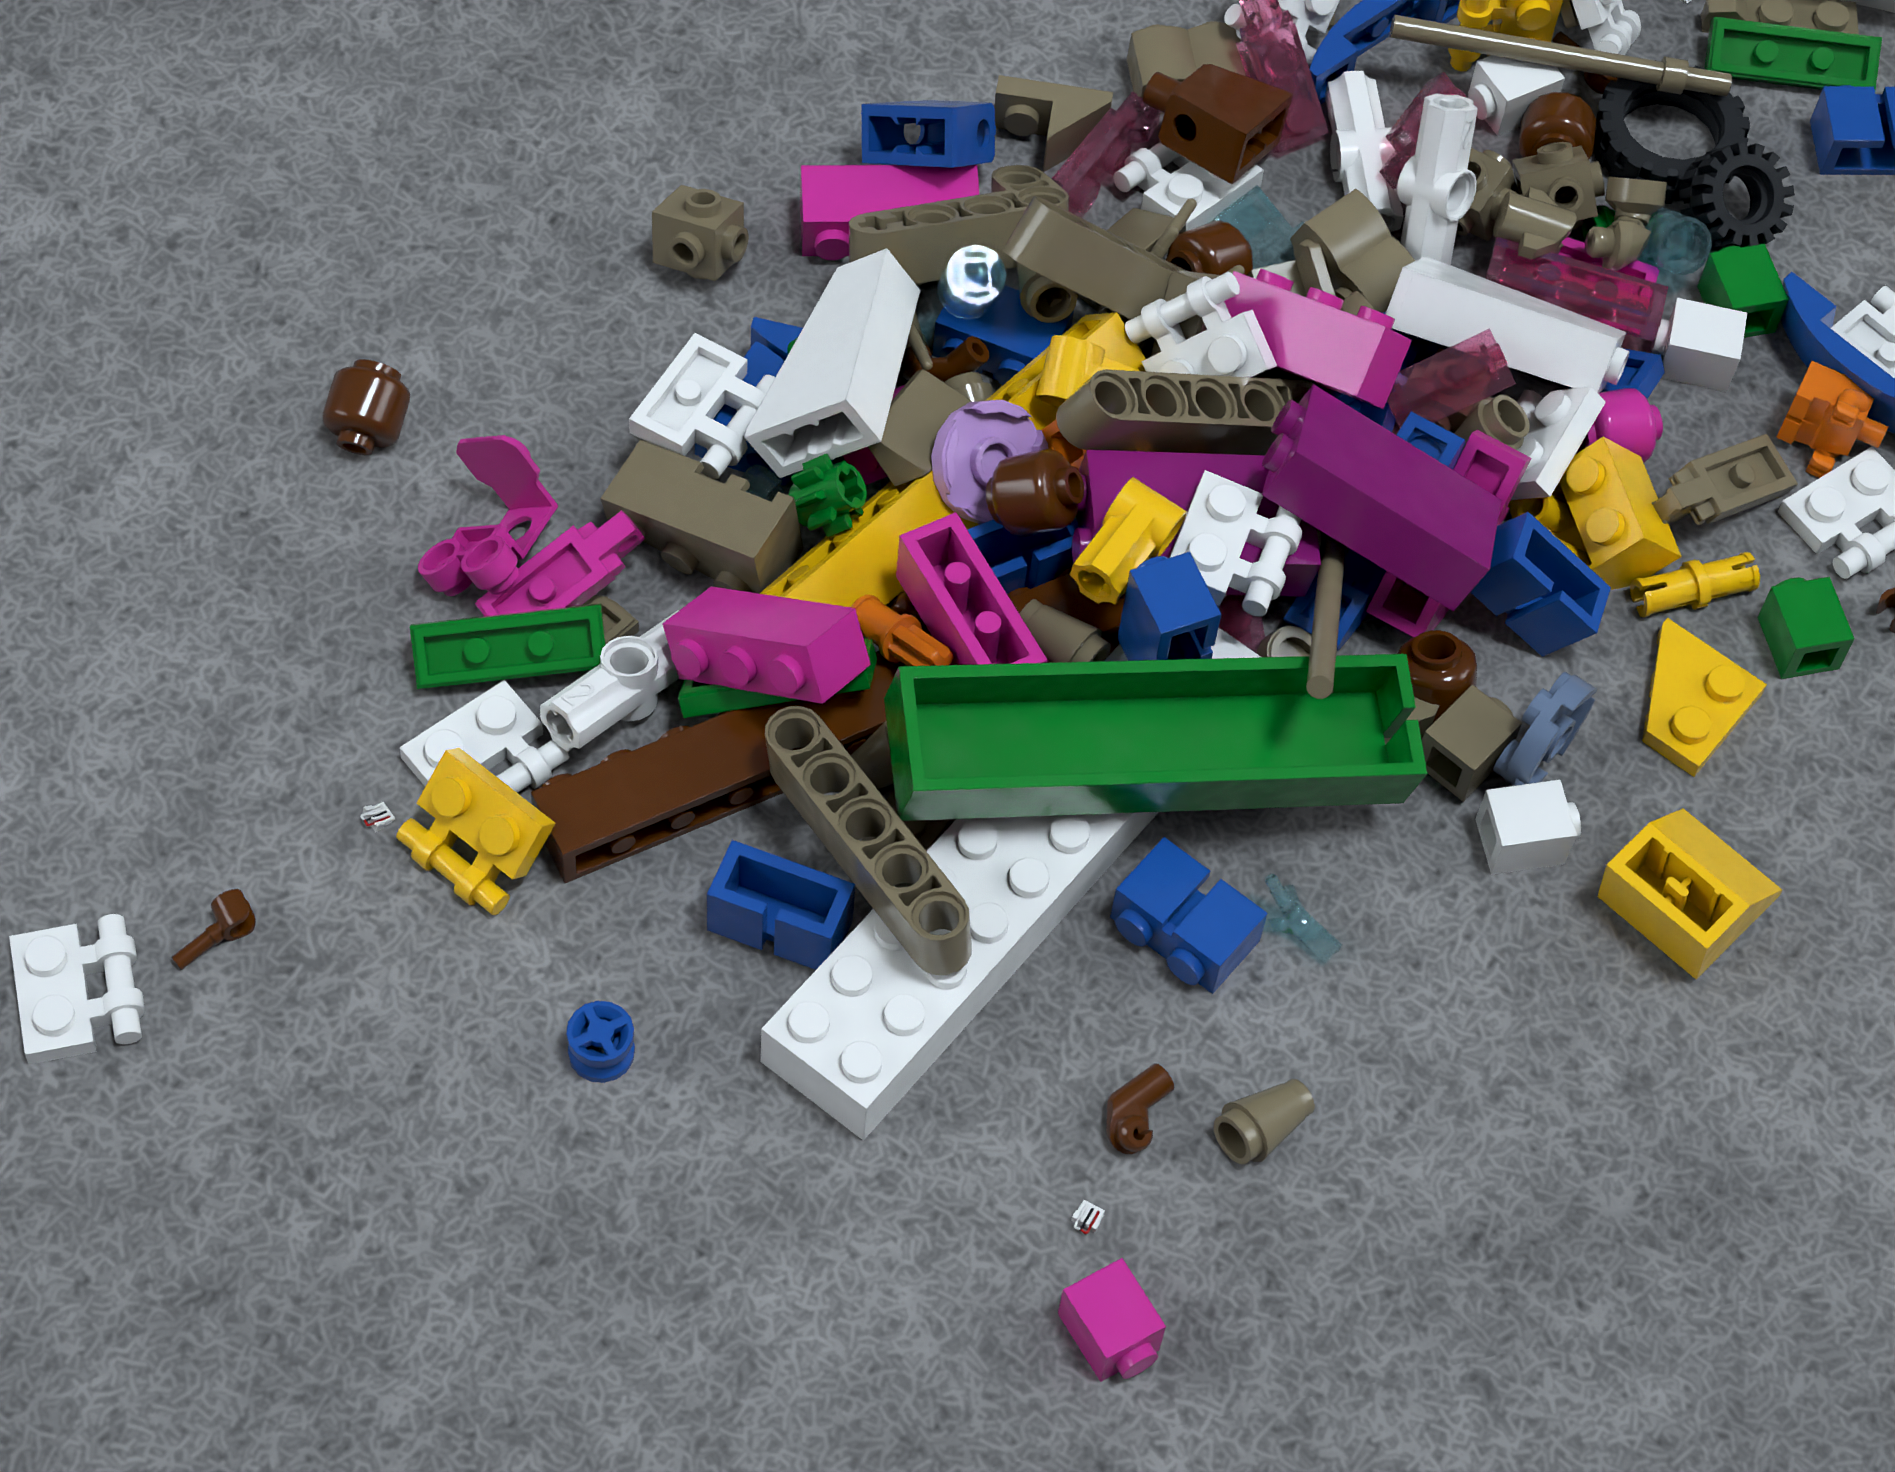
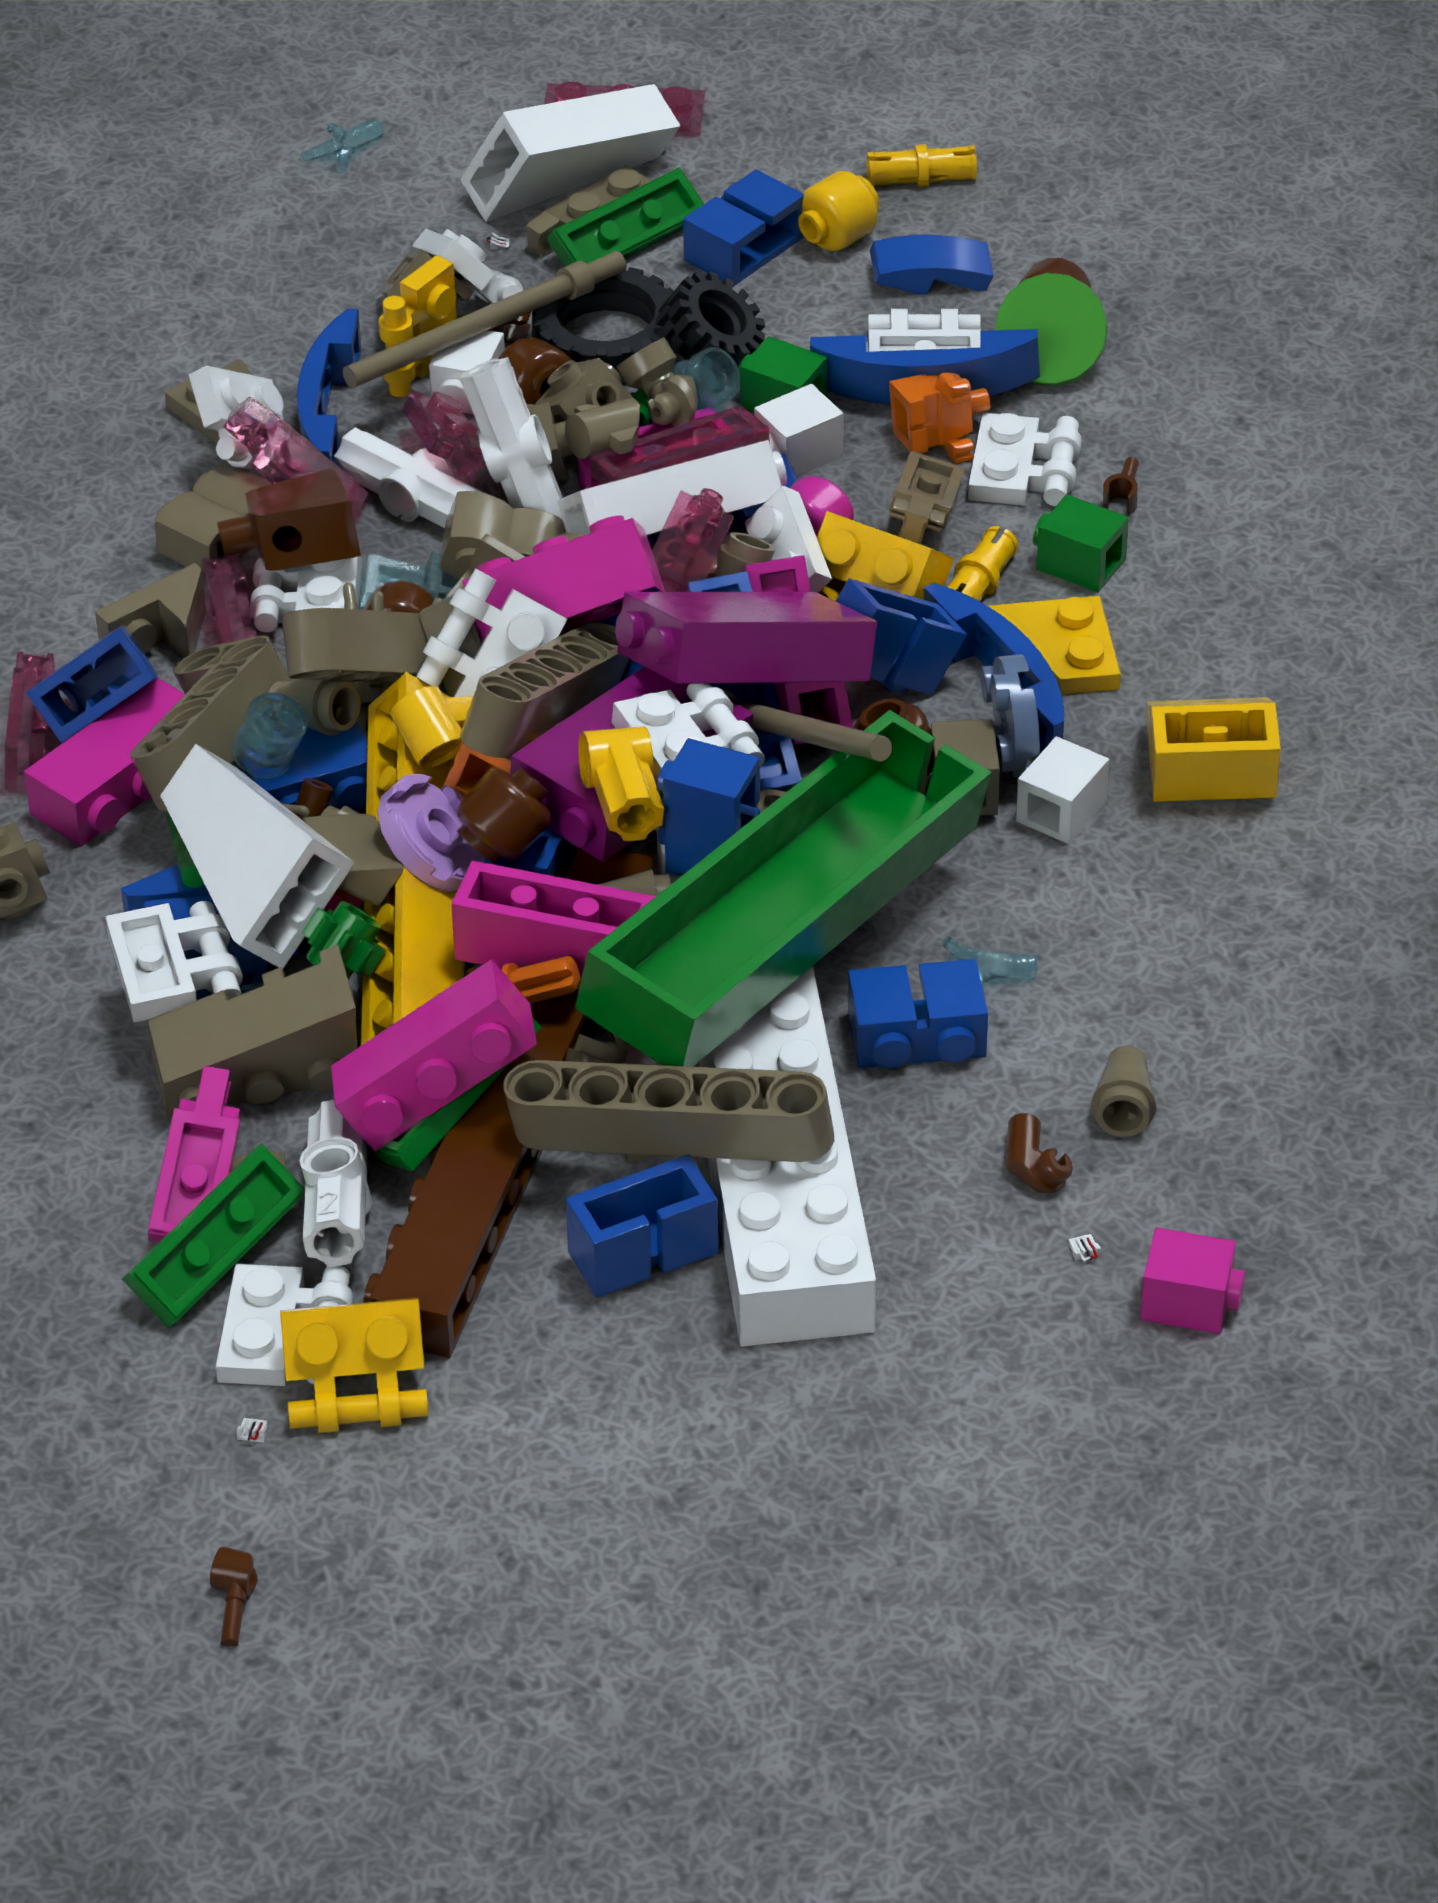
camera: 40 degrees left, 15 degrees down
(54, 991) = (167, 1738): white plate -> none
(488, 552) = (73, 1123): dark pink piece -> none
(600, 1025) = (609, 1403): blue wheel -> none
(841, 138) = (22, 742): none -> clear pink hinge
(1625, 630) = (995, 636): none -> blue slope

